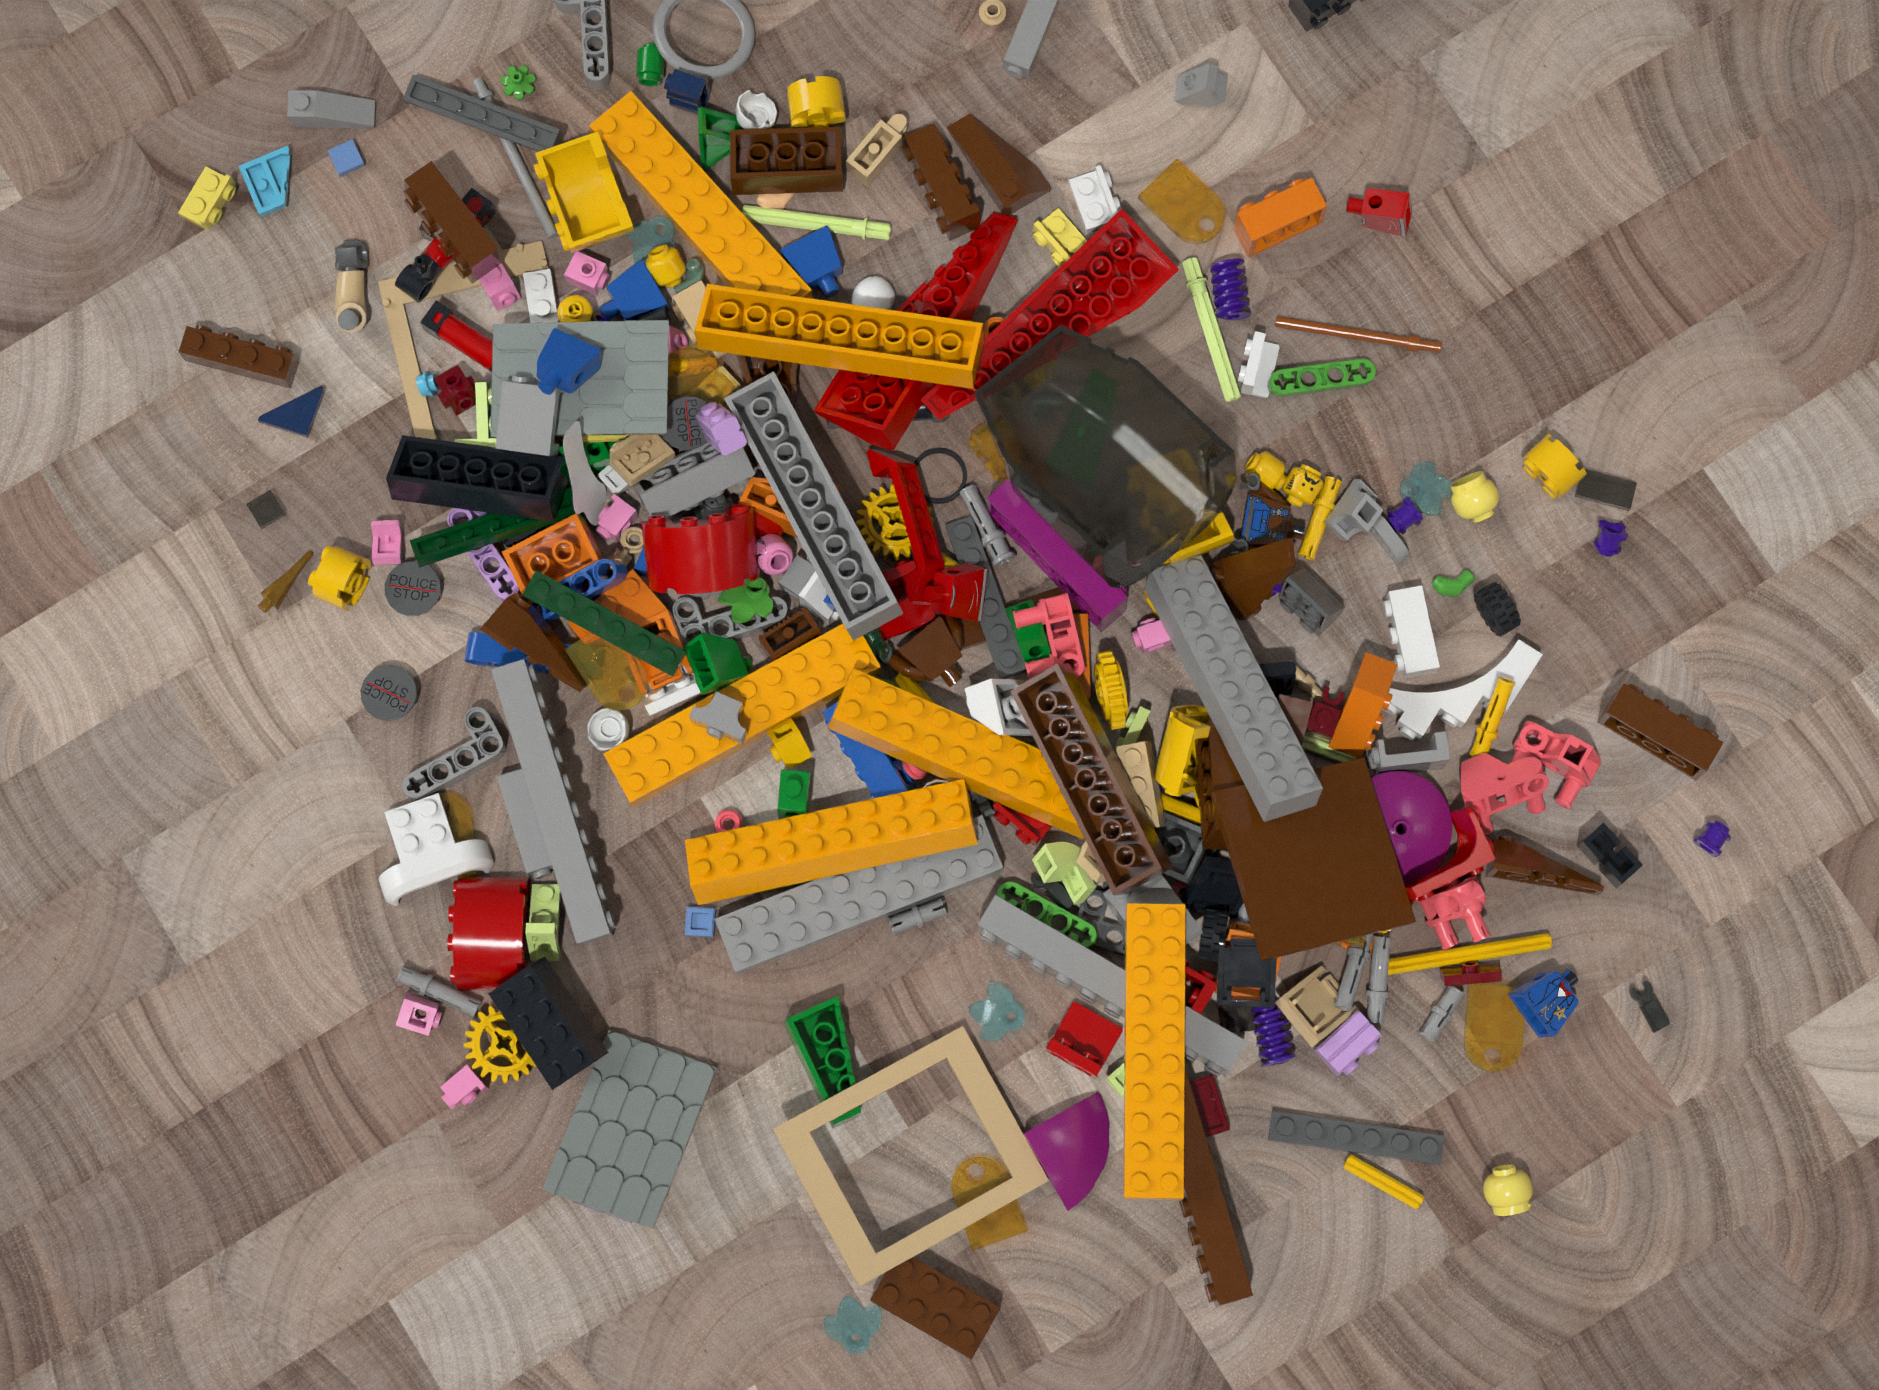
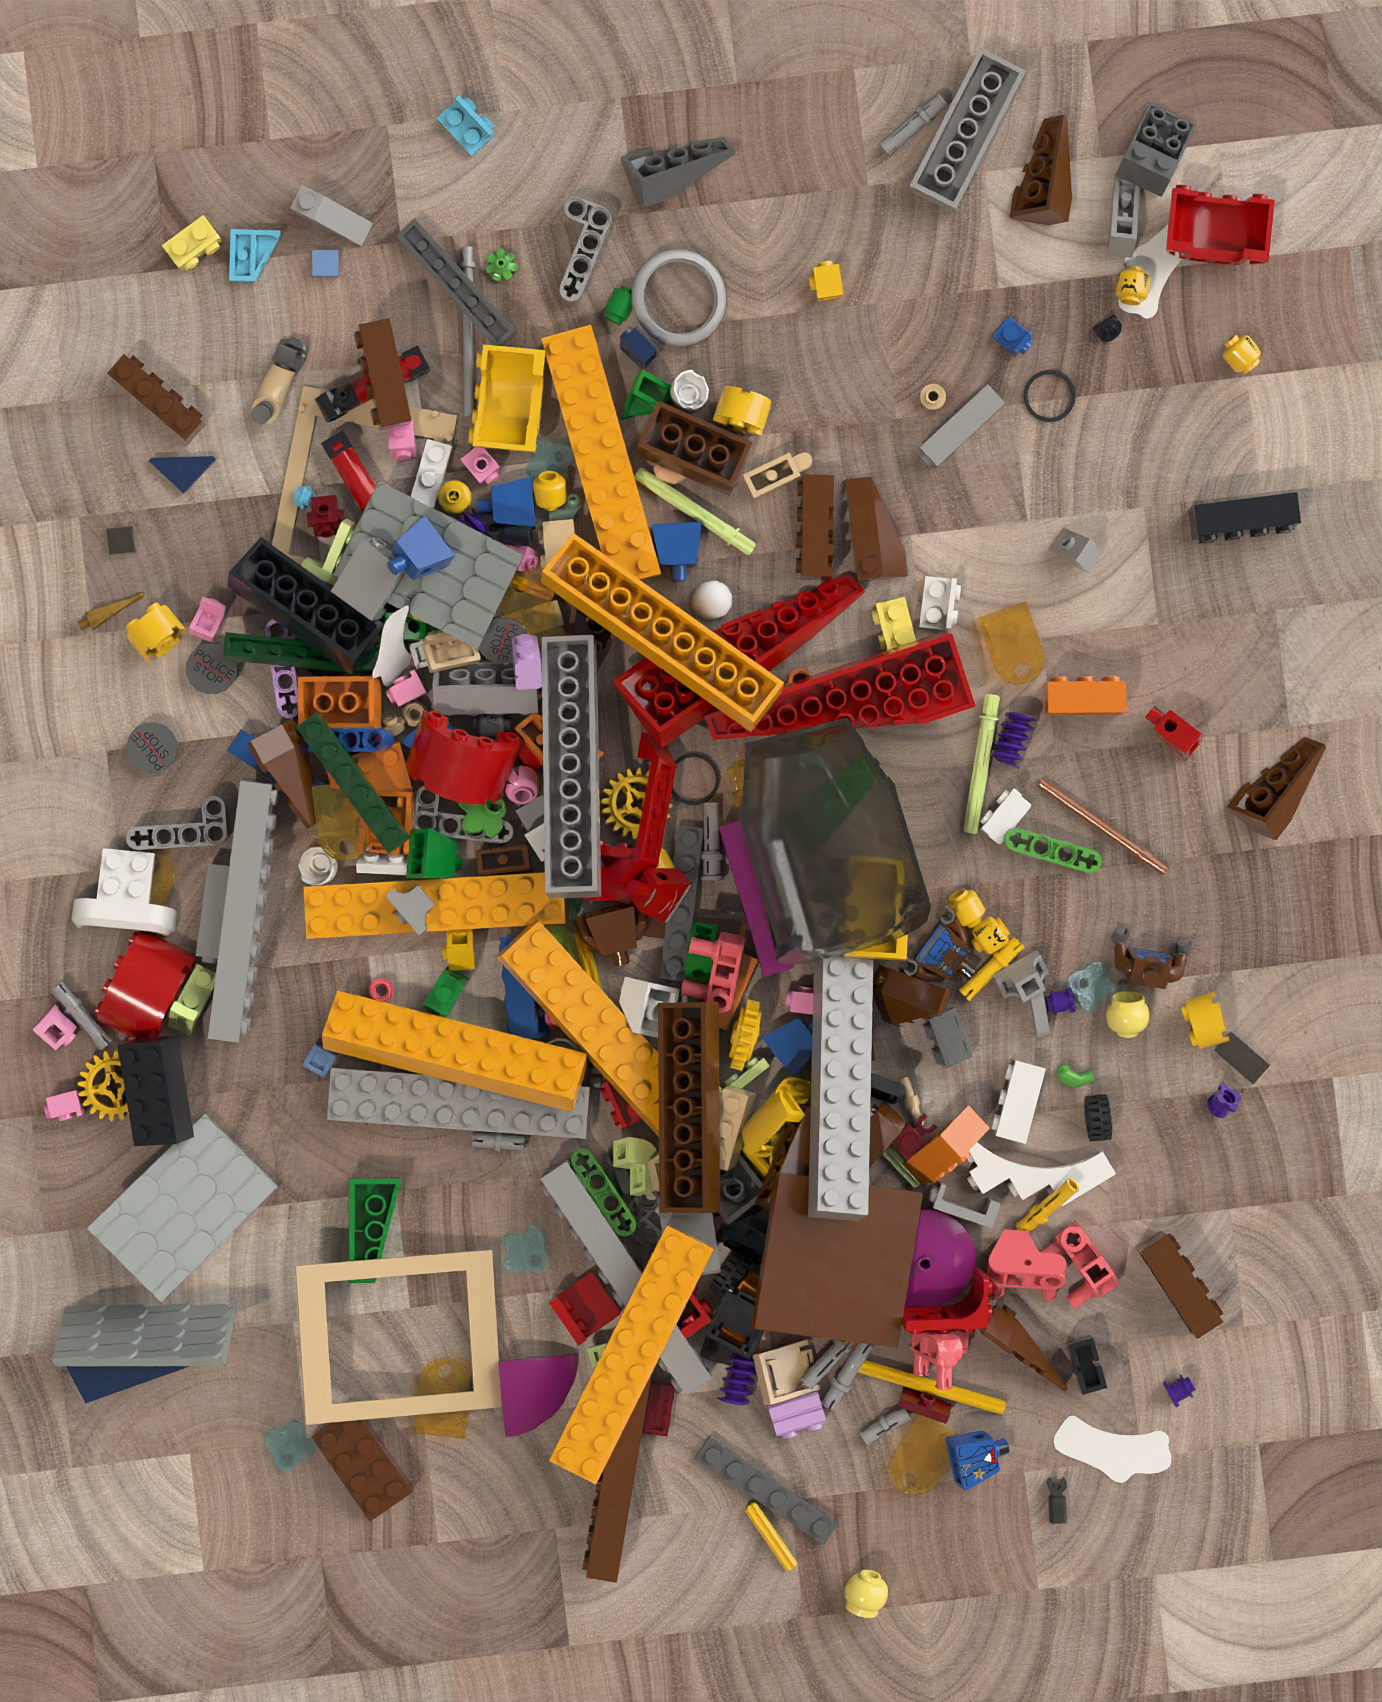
camera: 25 degrees right, 10 degrees up
(645, 1293) = (135, 1343): none -> light grey piece
(1161, 680) = (791, 1044): none -> blue torso
(1469, 442) = (1147, 966): none -> reddish brown torso
(1509, 228) = (1274, 797): none -> reddish brown wedge
(1679, 935) = (1112, 1453): none -> white sticker

